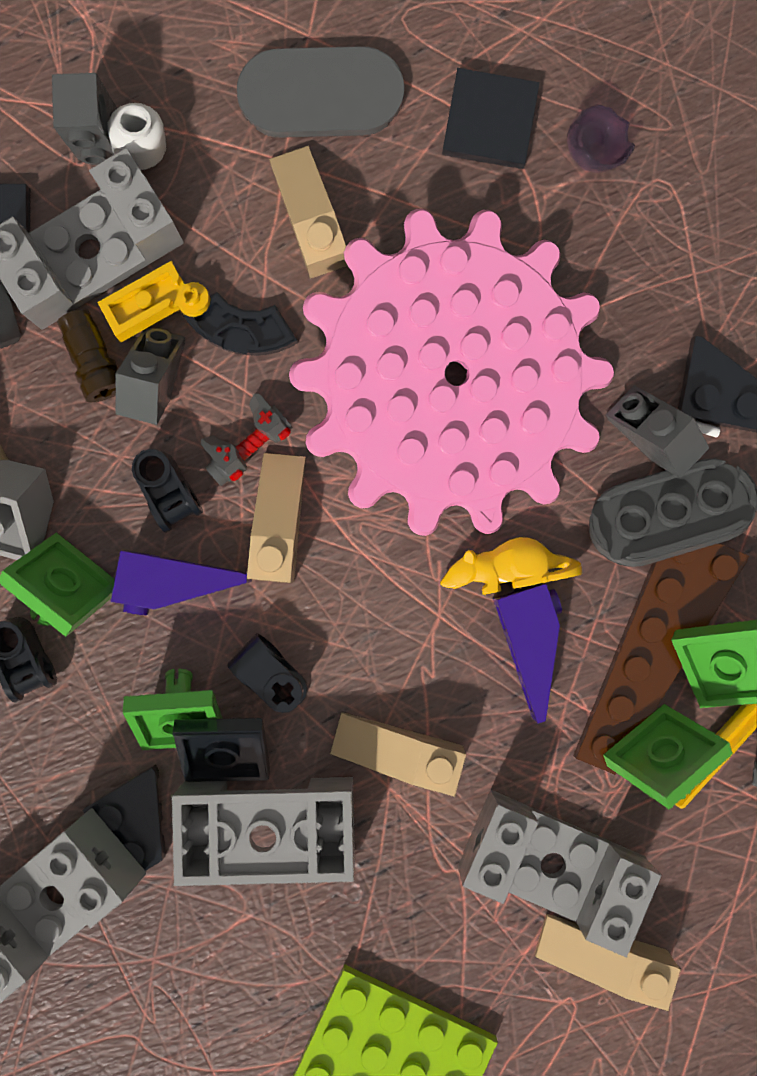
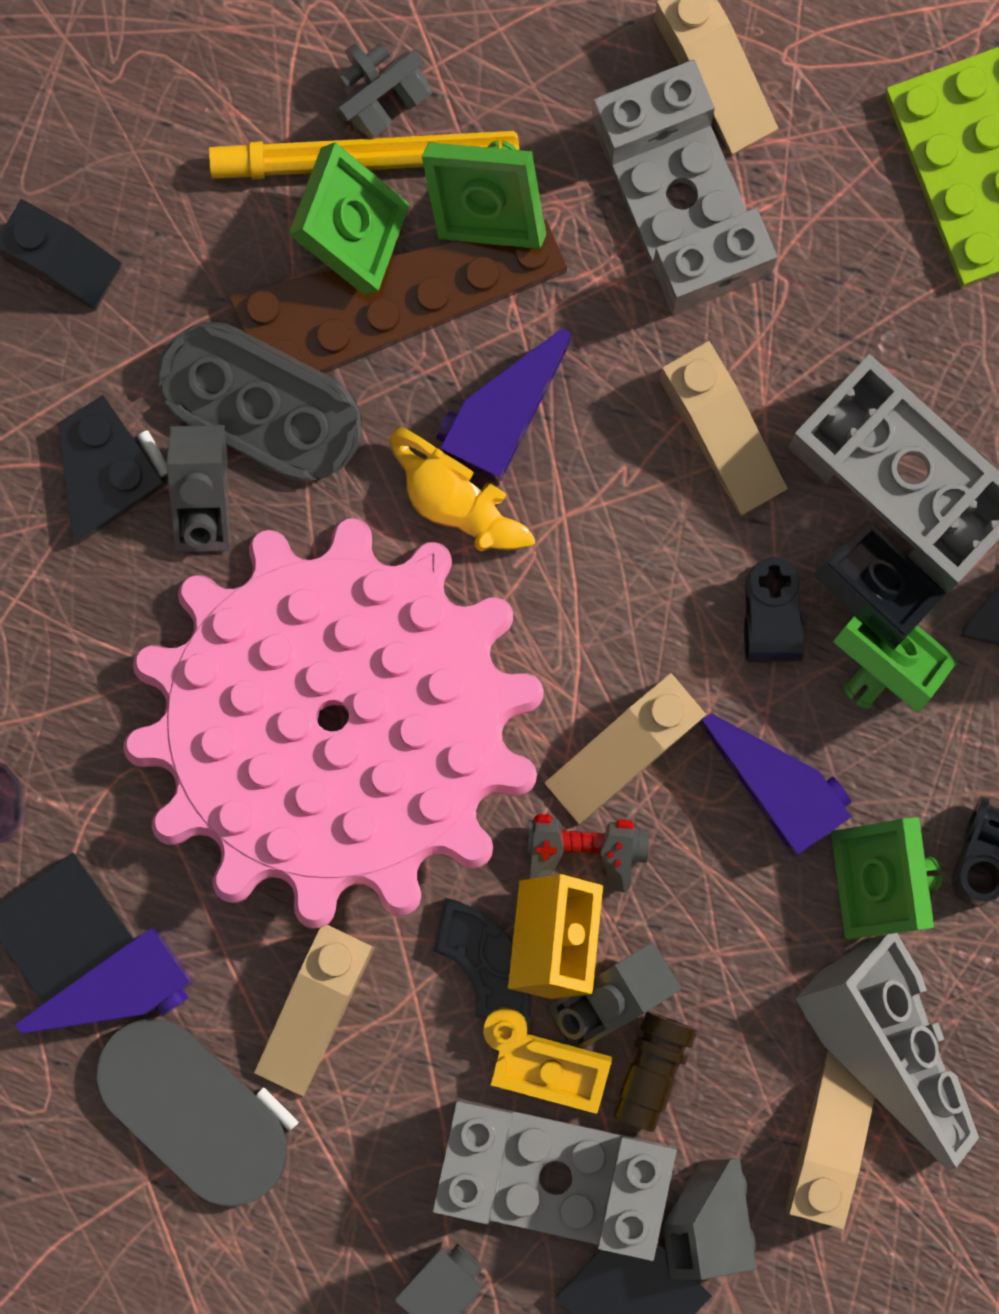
camera: 140 degrees left, 5 degrees down
(140, 131) = (395, 1242): white head -> none
(165, 491) = (703, 873): black piece -> none
(210, 372) = (555, 936): none -> yellow brick
(274, 139) = (281, 1113): none -> white piece
(423, 114) = (125, 985): none -> dark purple slope

